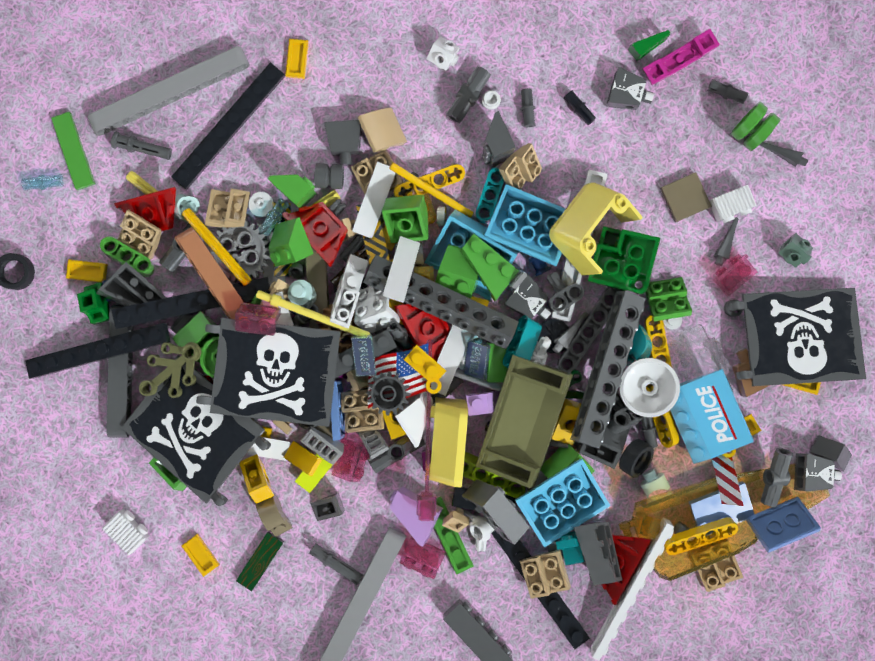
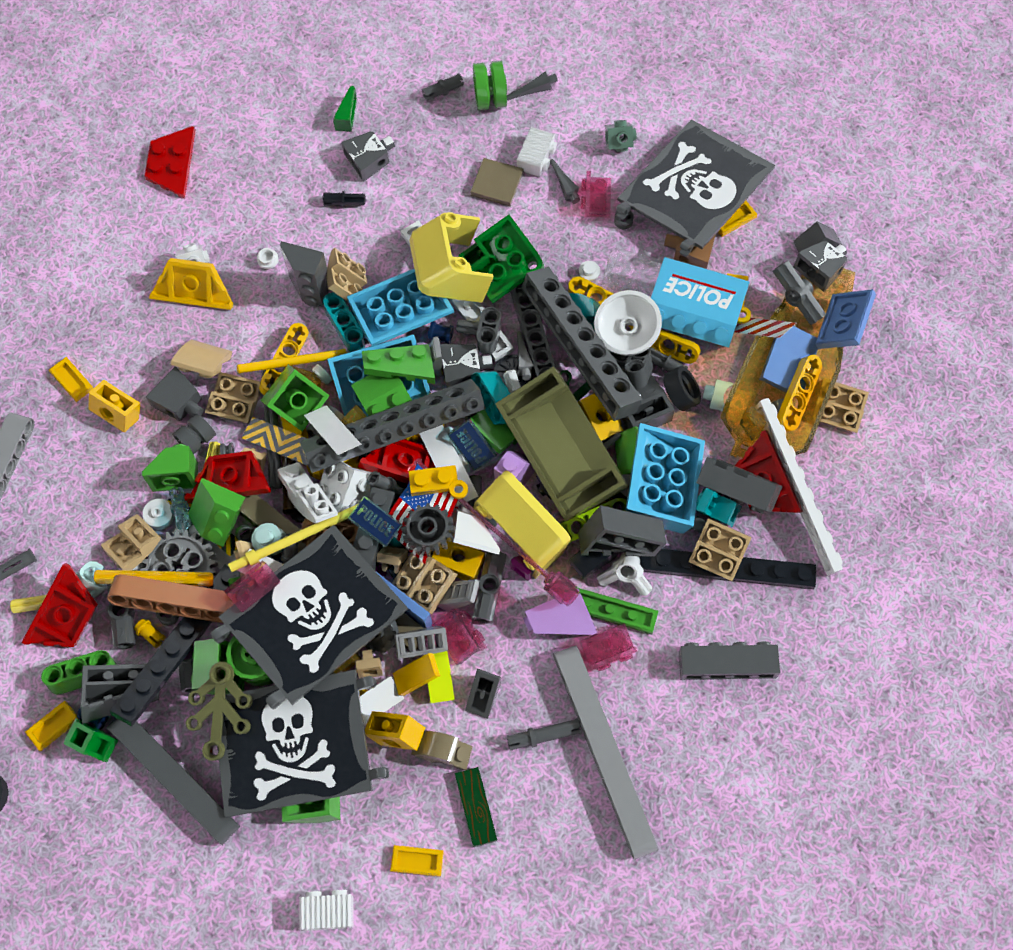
camera: 45 degrees left, 20 degrees down
(98, 350) = (131, 777): black plate -> none
(139, 234) = (71, 637): tan slope -> none
(186, 273) = (148, 632): none -> yellow pin
(228, 126) = (63, 484): black plate -> none
(301, 107) = (114, 406): none -> yellow brick
(374, 200) = (252, 414): white sticker -> none
(426, 72) = (191, 284): none -> yellow wing
(456, 520) = (601, 586): tan tile -> none
(468, 94) = (245, 271): dark grey piece -> none
(527, 108) = (303, 236): dark grey axle -> none
(668, 299) = (569, 258): bright green slope -> none
(681, 57) = (382, 97): dark pink slope -> none

